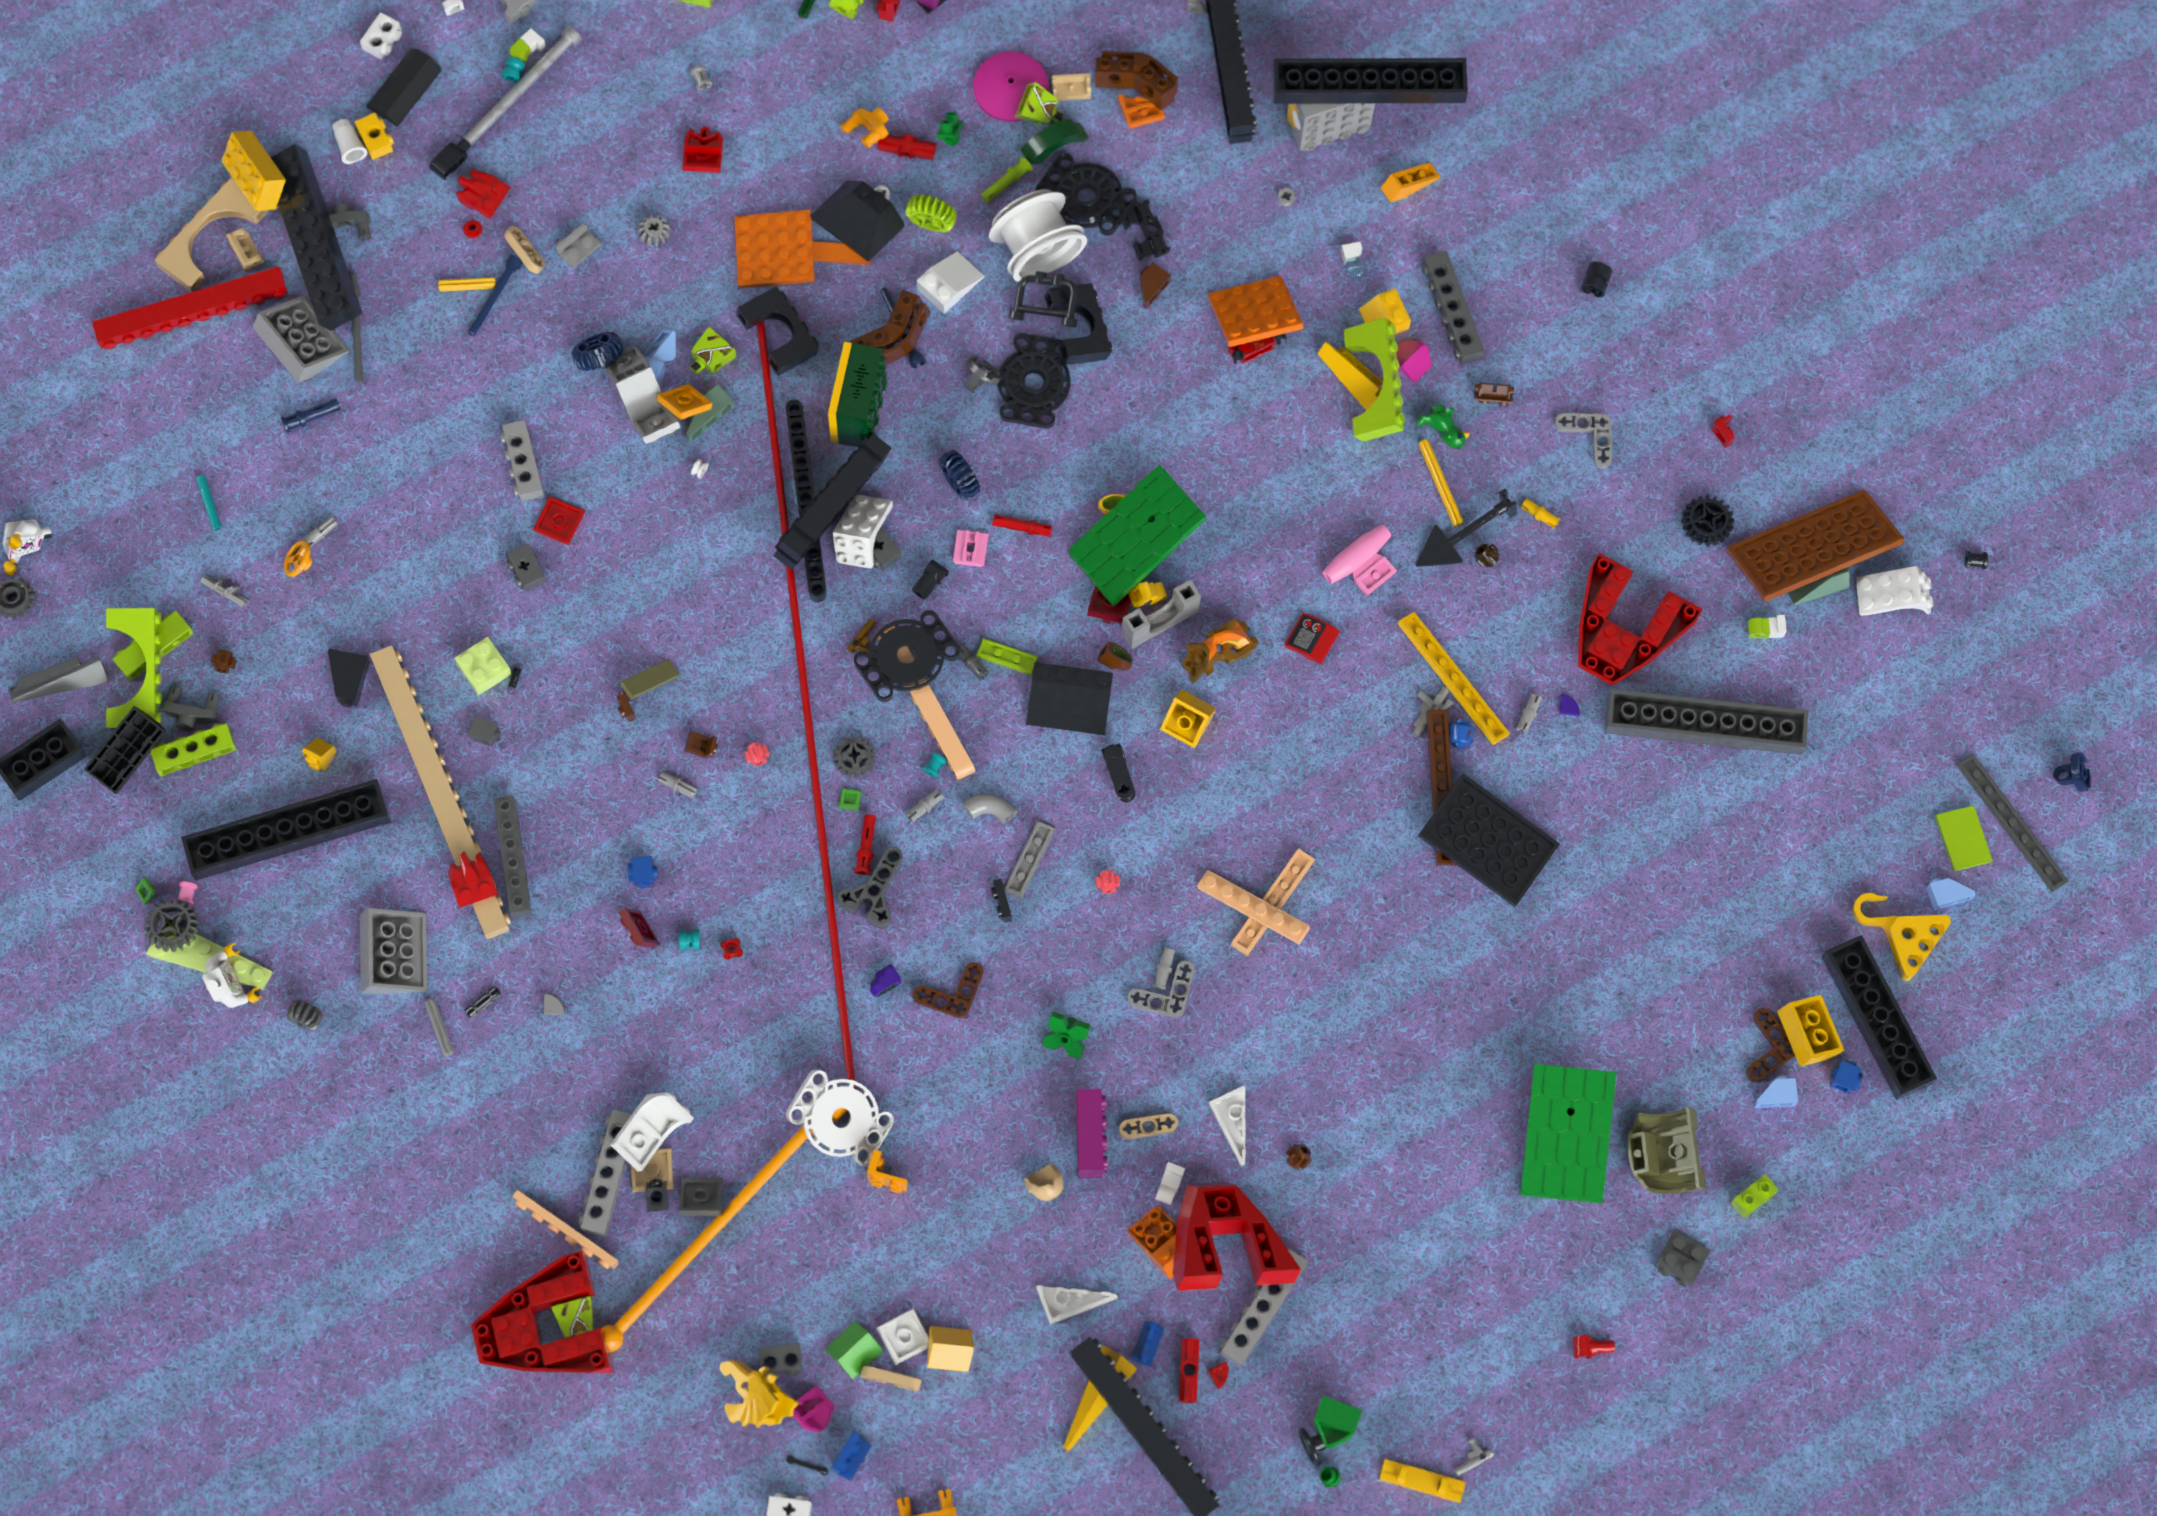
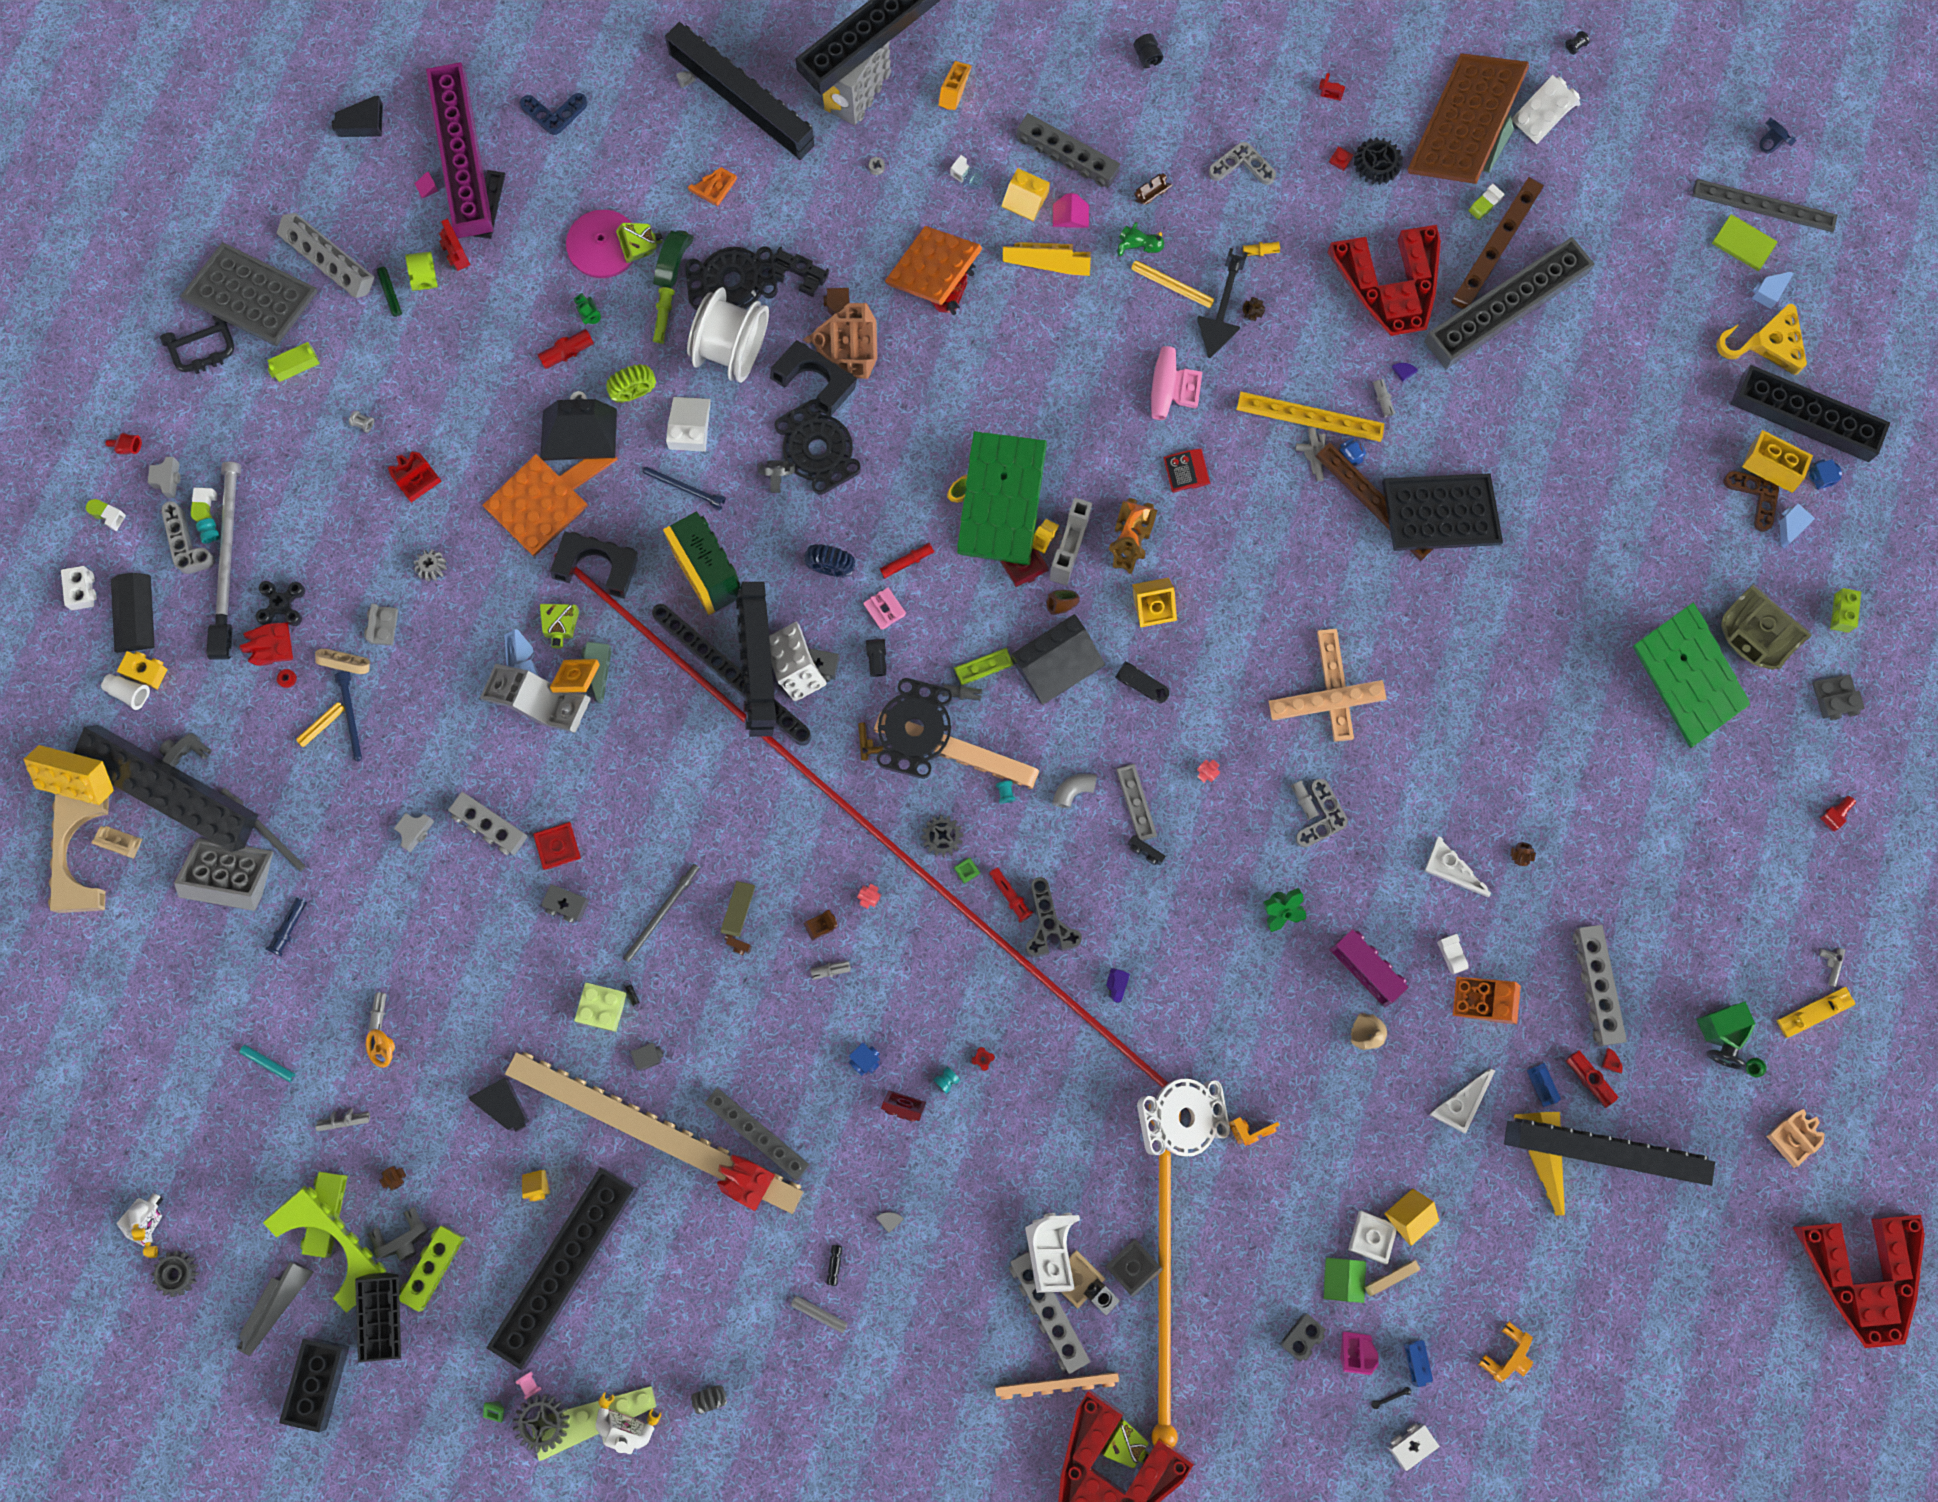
camera: 40 degrees left, 5 degrees up
(189, 308) = (113, 924): red brick -> none
(393, 951) = (731, 1288): light grey slope -> none
(464, 419) = (413, 830): none -> light grey brick
(483, 74) = (181, 537): none -> light grey beam
(518, 168) = (283, 608): none -> black gear
(597, 351) = (471, 692): dark blue gear -> none
(628, 627) = (685, 881): none -> dark grey bar
(699, 468) = (629, 717): white bush -> none
(763, 1399) = (1325, 1379): yellow animal -> none
(871, 120) = (522, 350): light orange connector -> none
(905, 320) = (684, 488): reddish brown brick -> none
(924, 805) = (1025, 828): light grey pin -> none
(958, 999) = (1180, 950): reddish brown beam -> none
(1040, 278) = (757, 365): black bar -> none
(1071, 86) = (648, 207): tan hinge -> none
(1133, 317) = (849, 339): none -> nougat wedge
(1137, 72) = (690, 158): reddish brown brick -> none
(1164, 1129) = (1411, 917): tan beam -> none
(1222, 1210) = (1507, 943): red piece -> none
(1386, 413) = (1094, 263): lime arch -> none
(1679, 494) = (1341, 158): none -> red plate
(1746, 667) = (1497, 243): none -> reddish brown beam

